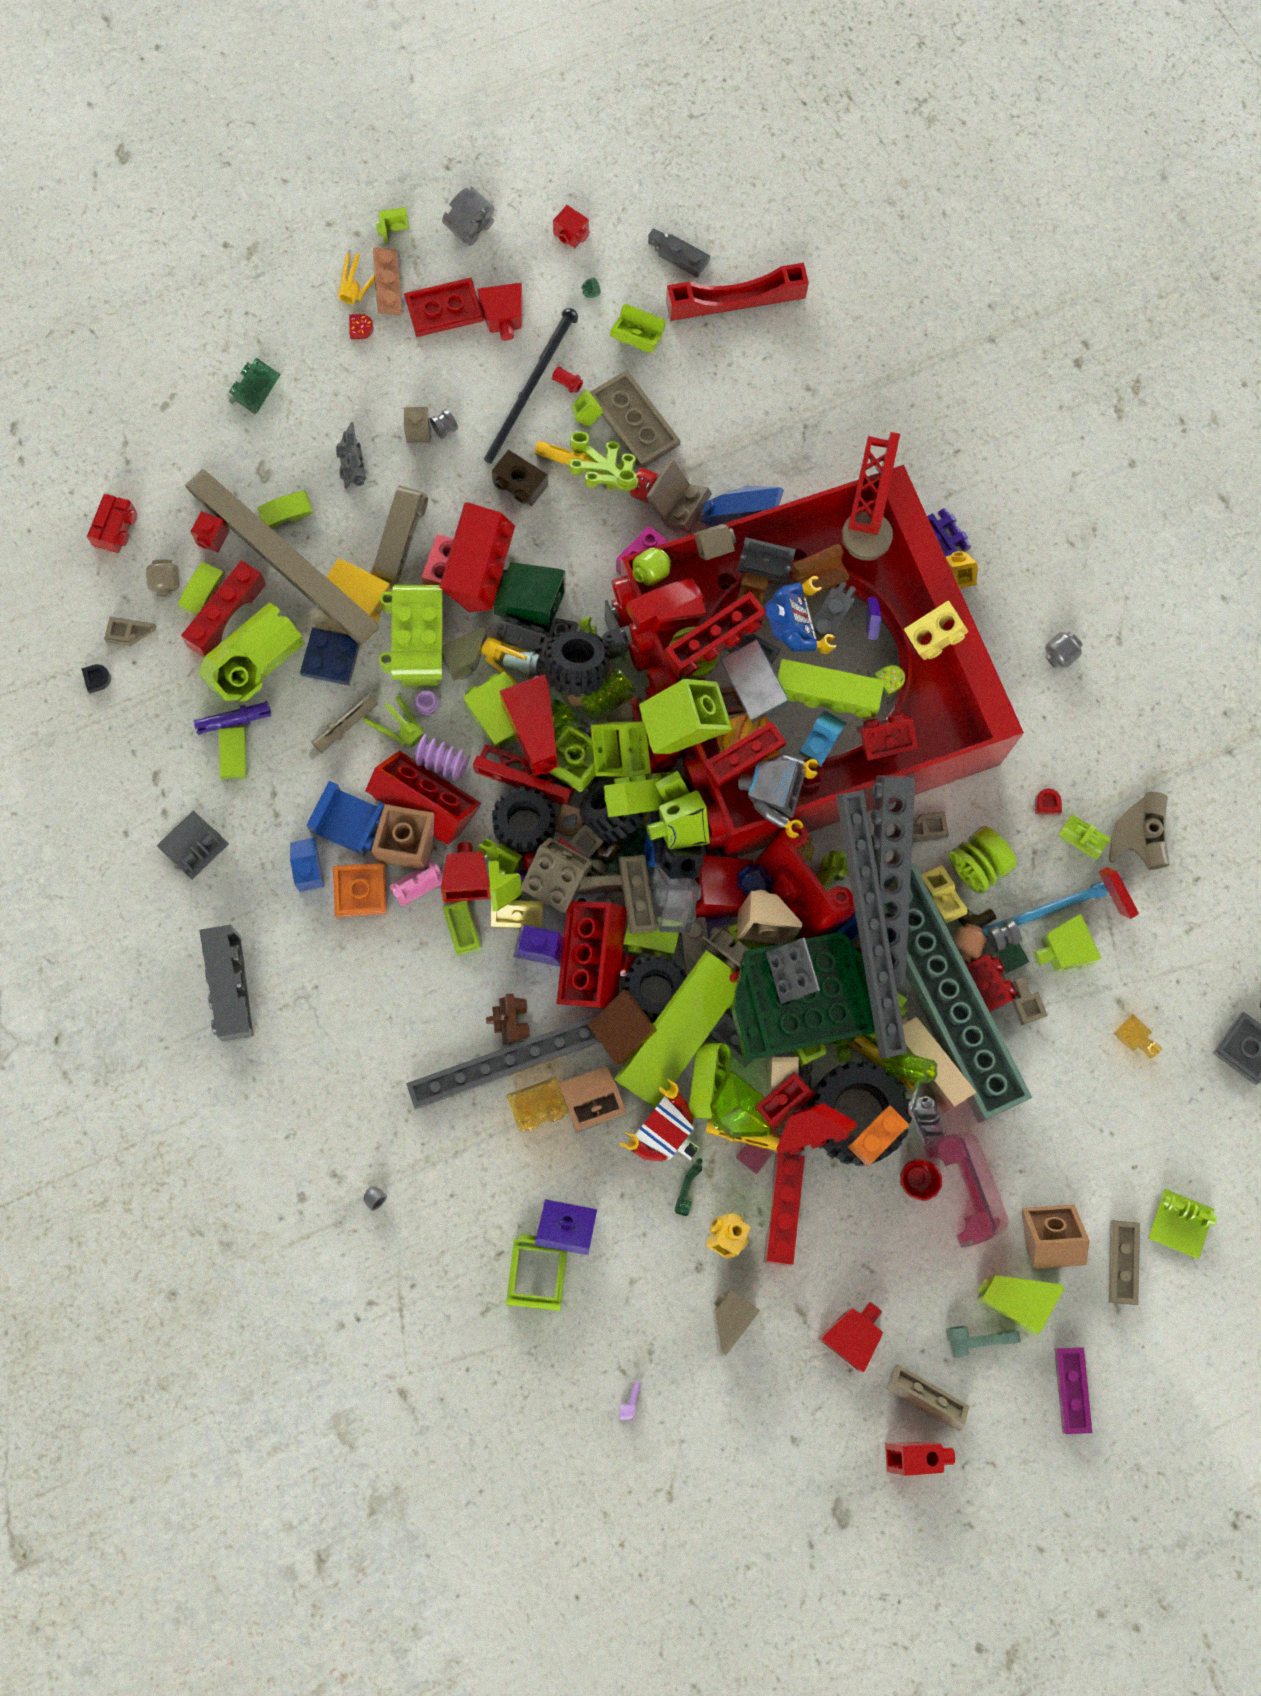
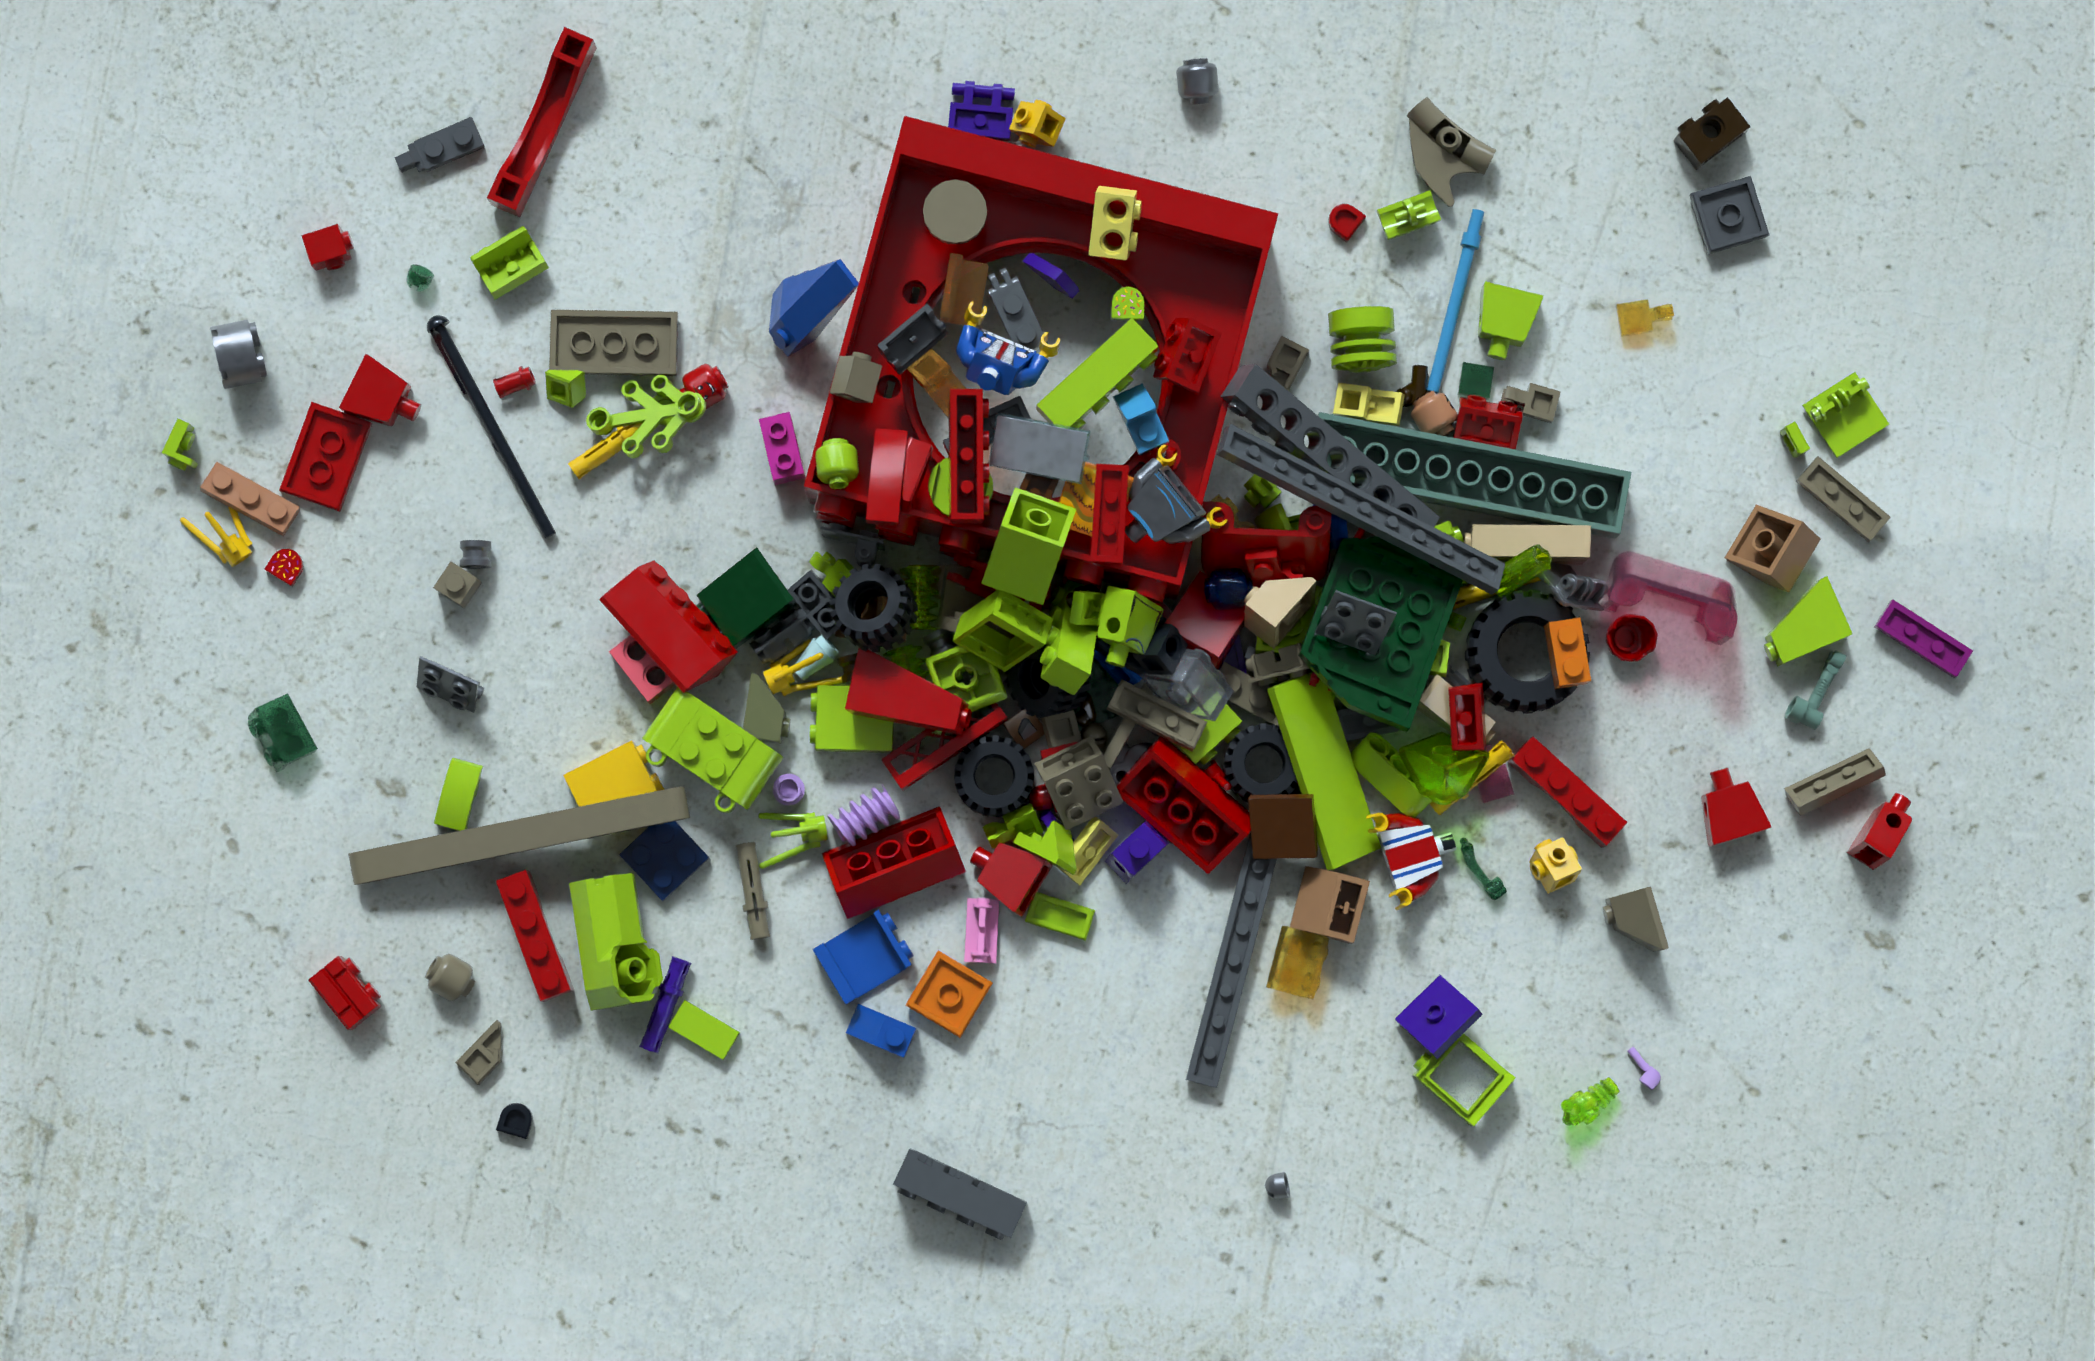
camera: 55 degrees left, 10 degrees up
(192, 845) = (778, 1135): dark grey hinge -> none
(200, 587) = (490, 944): lime slope -> none
(209, 532) = (431, 894): red brick -> none
(398, 533) = (577, 690): dark tan beam -> none
(404, 837) = (928, 911): medium nougat slope -> none
(505, 1019) = (1190, 936): reddish brown hips -> none
(512, 467) = (580, 516): dark brown brick -> none
(575, 1377) = (1585, 1106): none -> clear neon green piece
(676, 499) = (746, 363): dark tan bracket -> none
(813, 1128) = (1517, 708): red slope -> none
(883, 481) = (913, 153): red fence -> none
(1004, 935) = (1452, 373): flat silver wheel -> none
(1118, 892) = (1490, 226): red tile -> none
(1138, 1199) = (1794, 440): none -> lime tile

